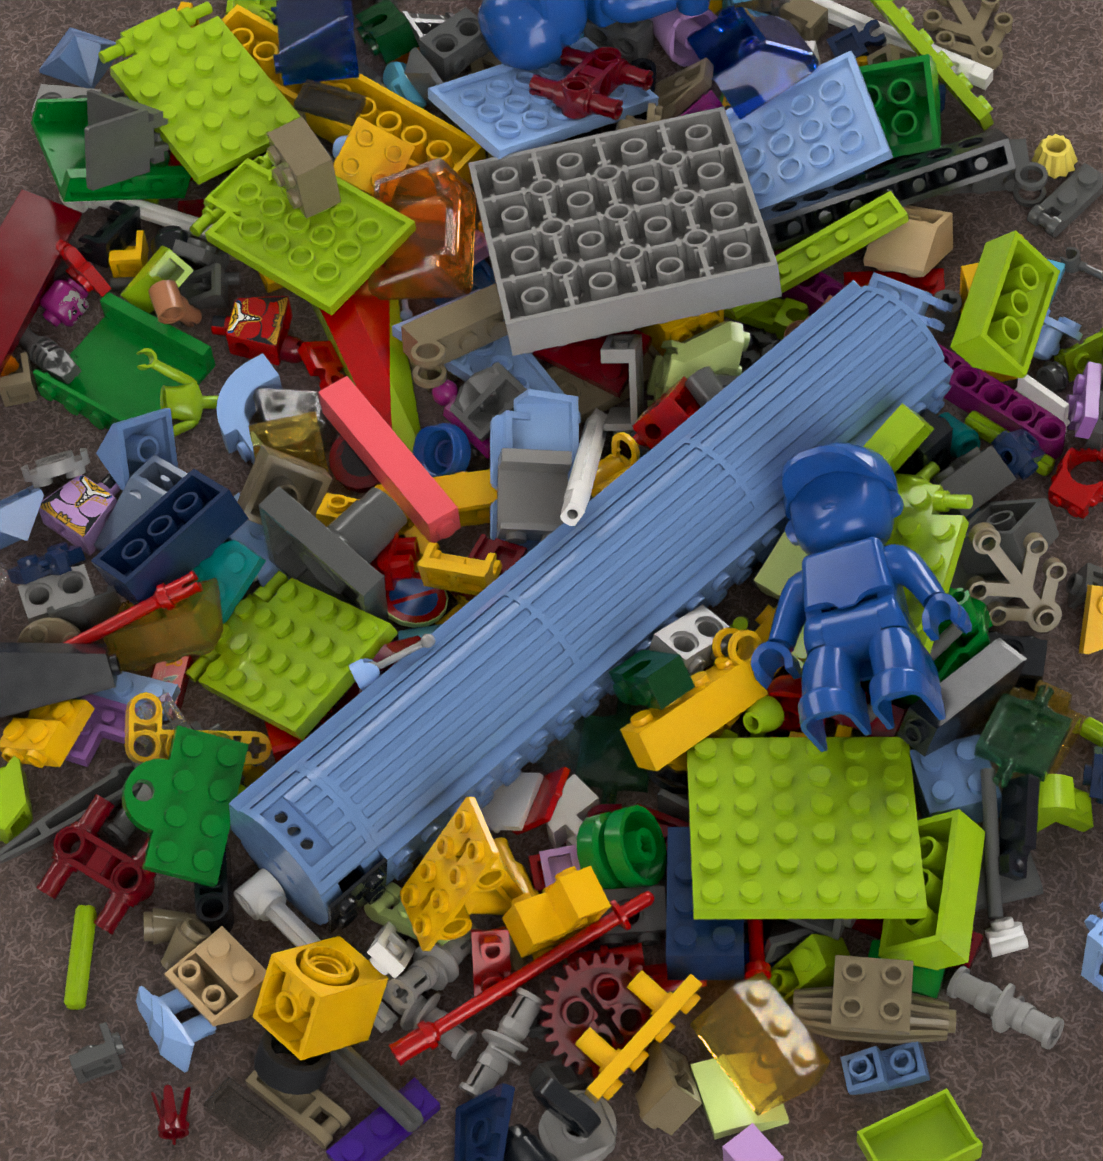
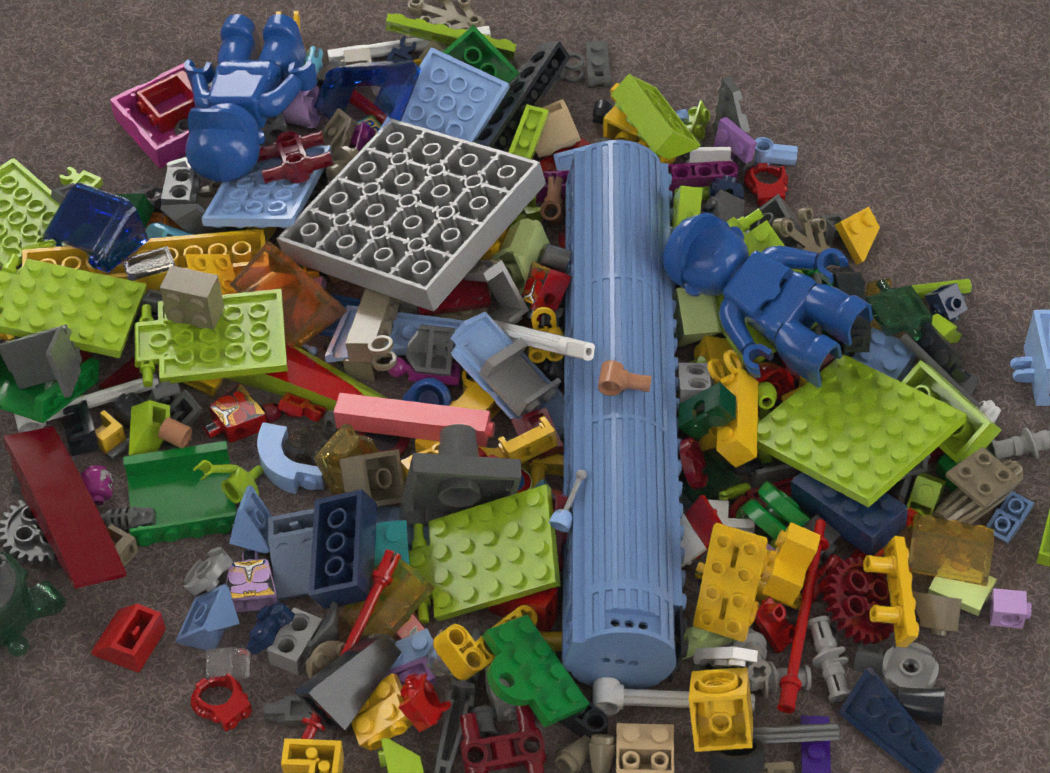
camera: 50 degrees left, 5 degrees down
(61, 750) = (416, 707): none -> red piece
(81, 270) = (89, 454): red hinge -> none
(567, 564) = (615, 378): none -> nougat pin
(567, 1107) = (901, 657): black beam -> none
(595, 725) = (693, 462): none -> dark red tile
(623, 794) = (734, 491): none -> lime pin
(1056, 156) = (571, 43): light yellow piece -> none

